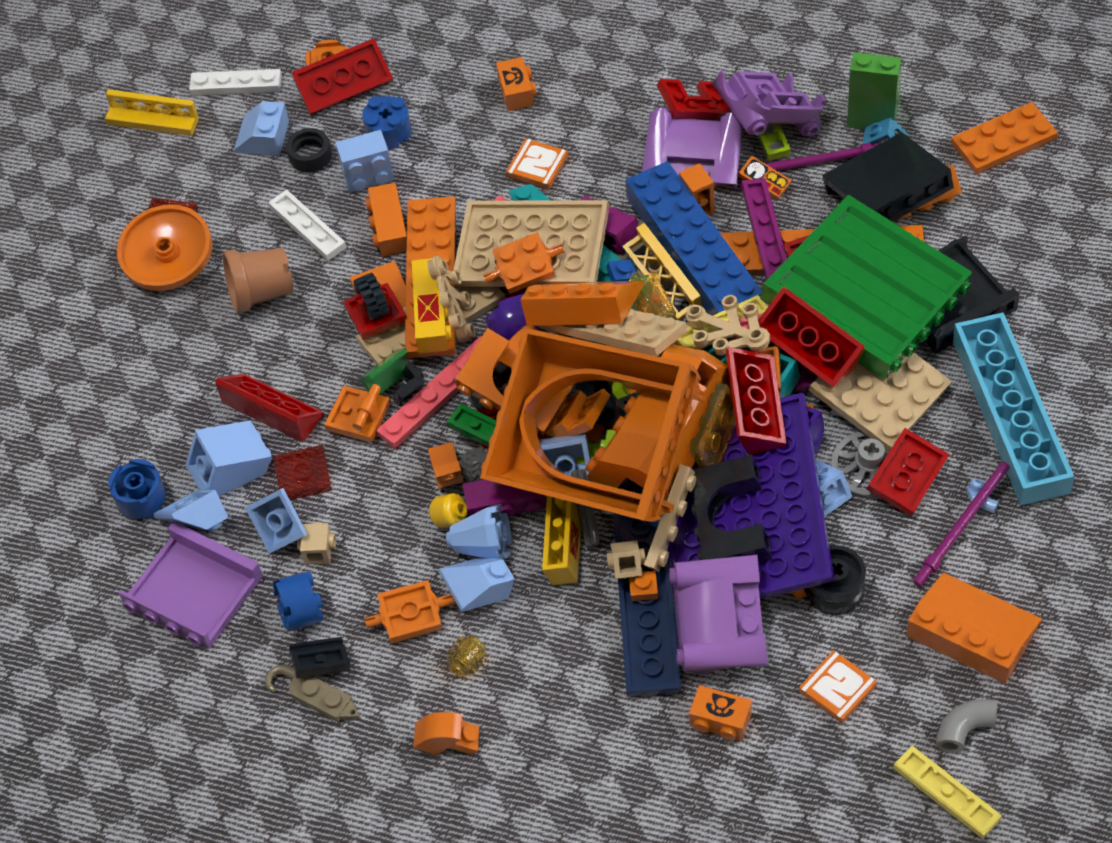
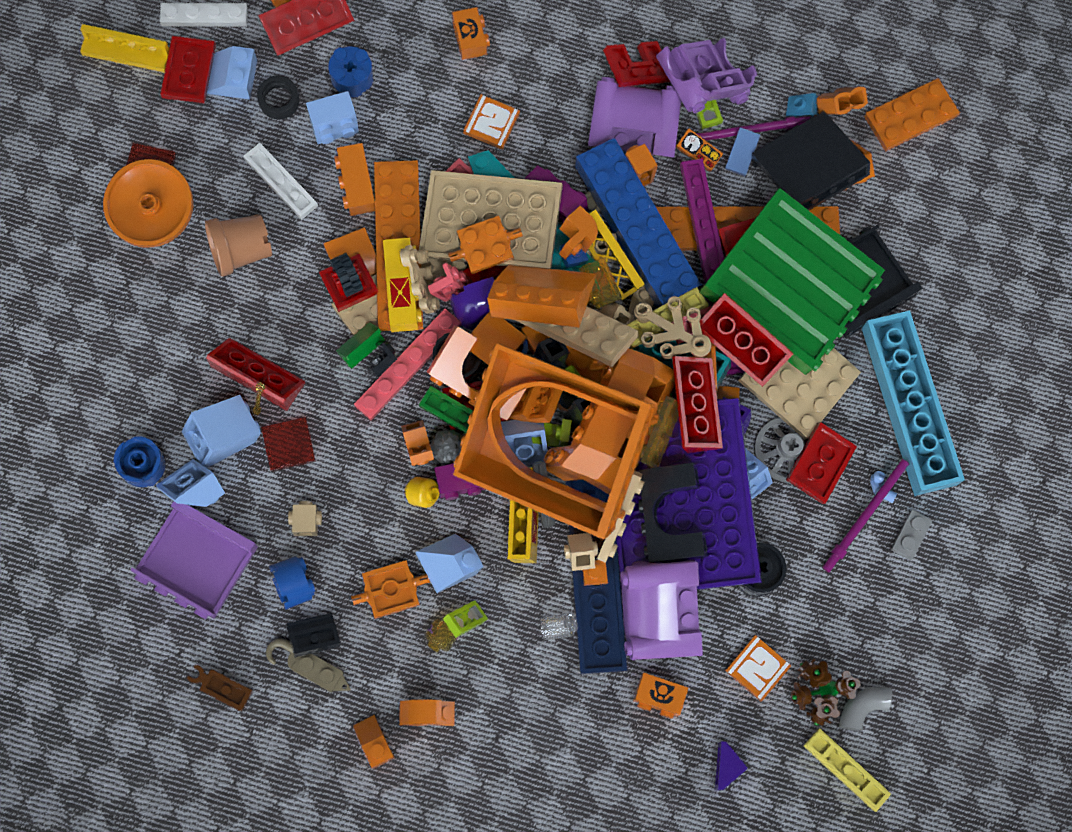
camera: 15 degrees left, 20 degrees up
(213, 715) = (222, 688): none -> reddish brown plate
(215, 129) = (188, 69): none -> red plate
(271, 406) = (260, 388): none -> clear yellow hinge
(276, 520) = (268, 498): light blue slope -> none
(358, 413) = (336, 386): orange plate -> none
(384, 771) = (373, 742): none -> orange slope
(480, 304) = (453, 283): none -> coral bracket
(482, 534) = (453, 517): light blue cone -> none
(492, 634) = (465, 618): none -> lime piece
(601, 642) = (558, 626): none -> clear brick
(624, 245) = (581, 230): none -> orange brick
(804, 789) = (728, 766): none -> dark purple slope
(811, 179) = (742, 151): none -> medium blue tile
(873, 89) = (801, 69): bright green slope -> none
(919, 704) = (828, 689): none -> reddish brown plant
(923, 122) = (842, 100): none -> orange brick
(972, 627) = (873, 614): orange slope -> none
(1018, 545) = (911, 535): none -> light grey plate

